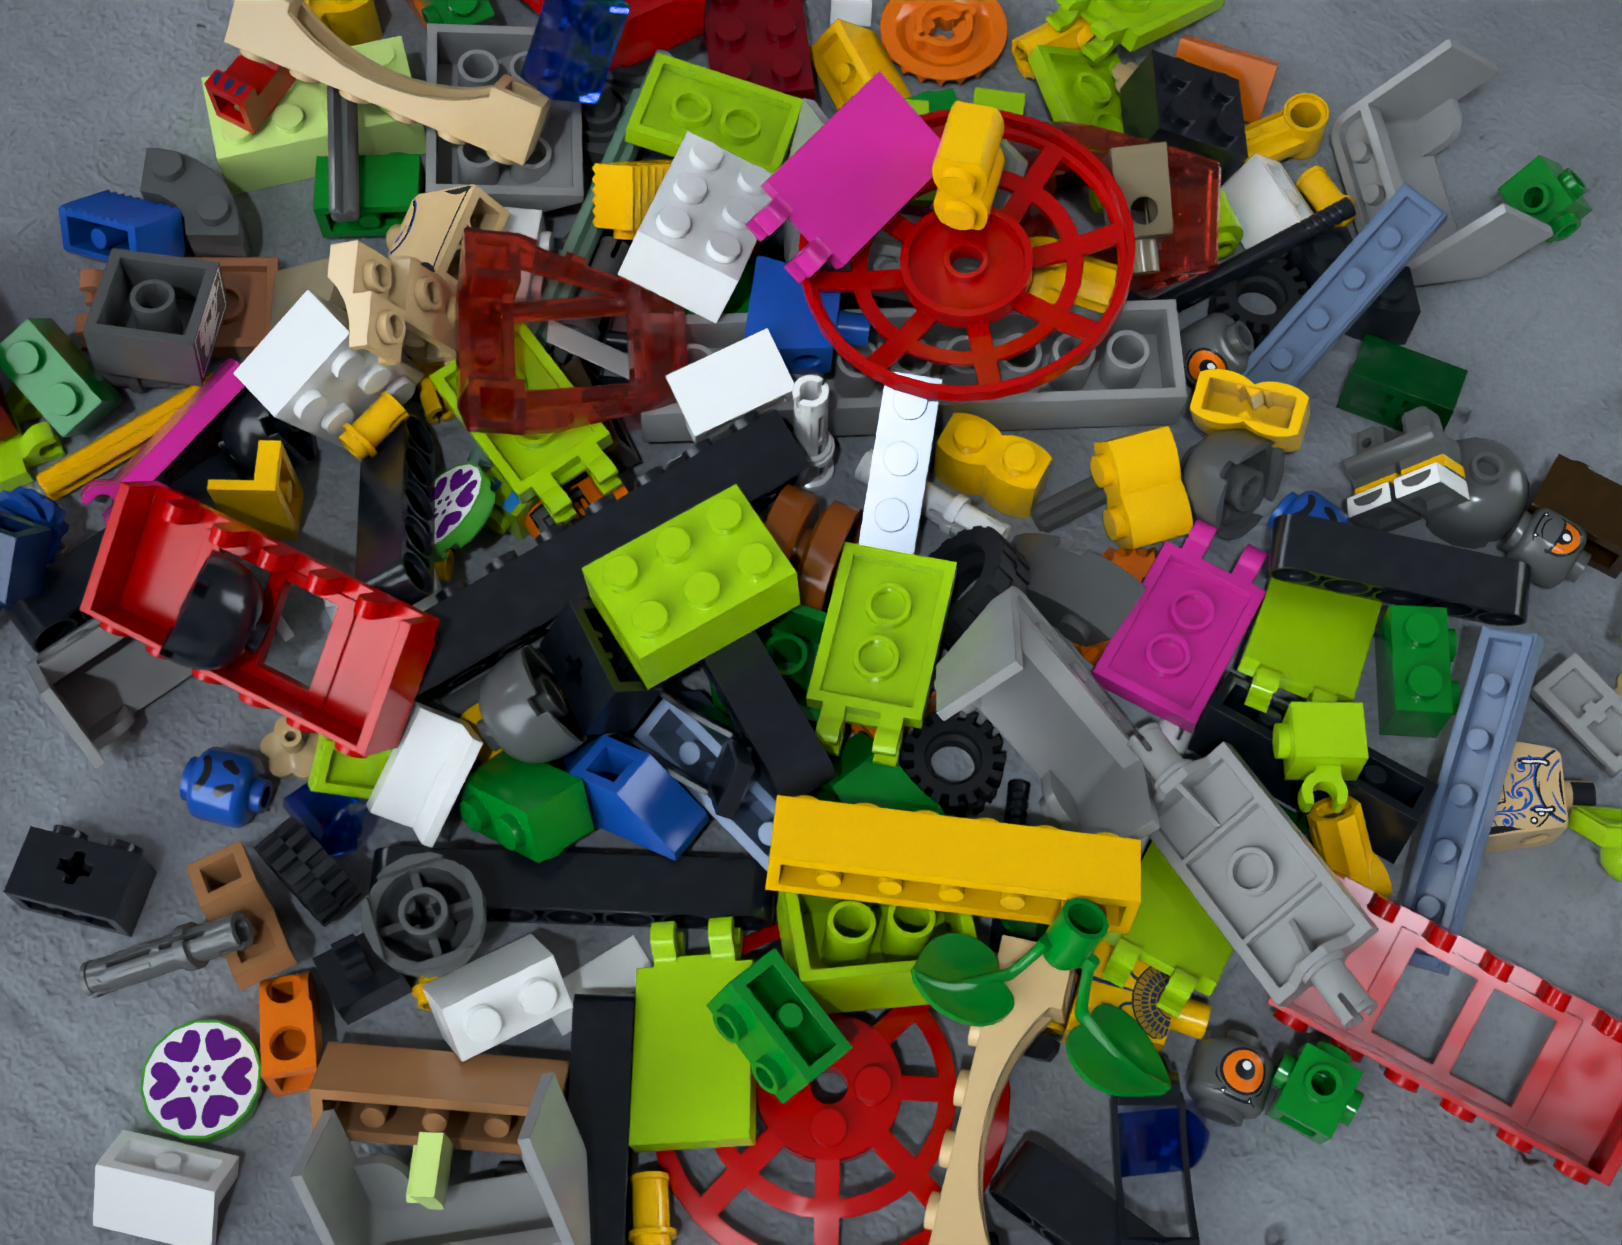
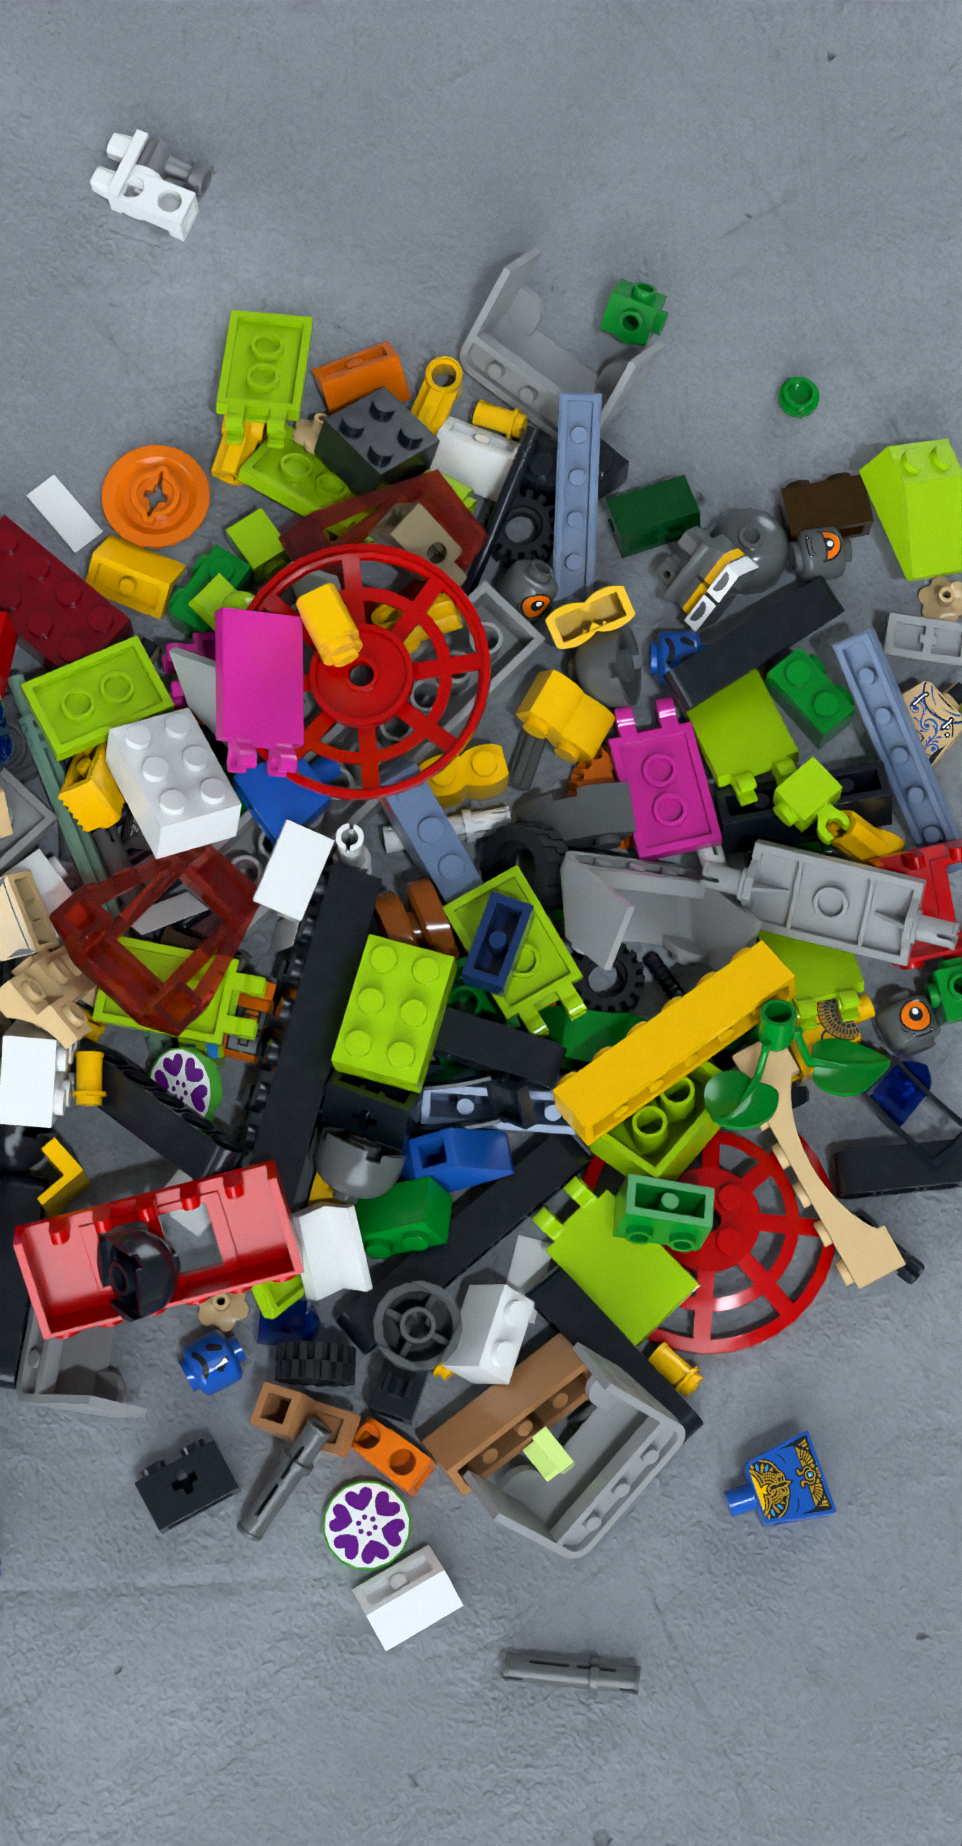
camera: 45 degrees left, 10 degrees up
(859, 608) = (498, 944): none -> dark blue brick

